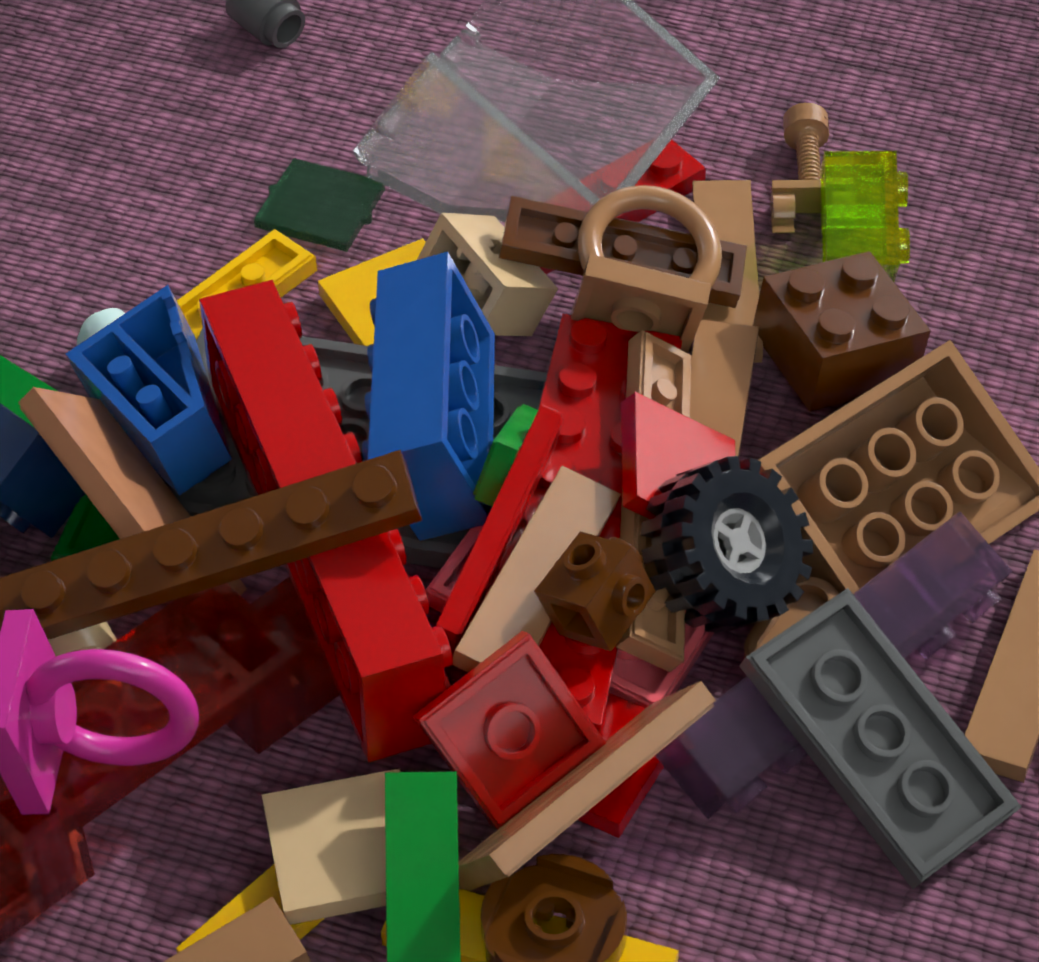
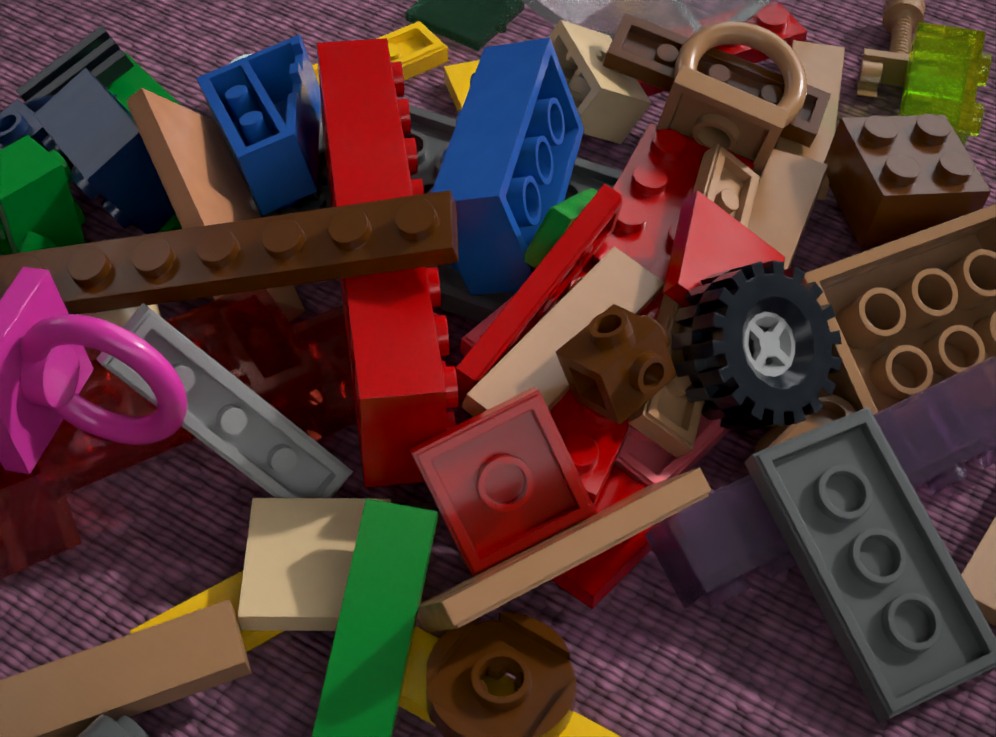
camera: 10 degrees right, 0 degrees up
(234, 719) = (234, 417): none -> light grey tile

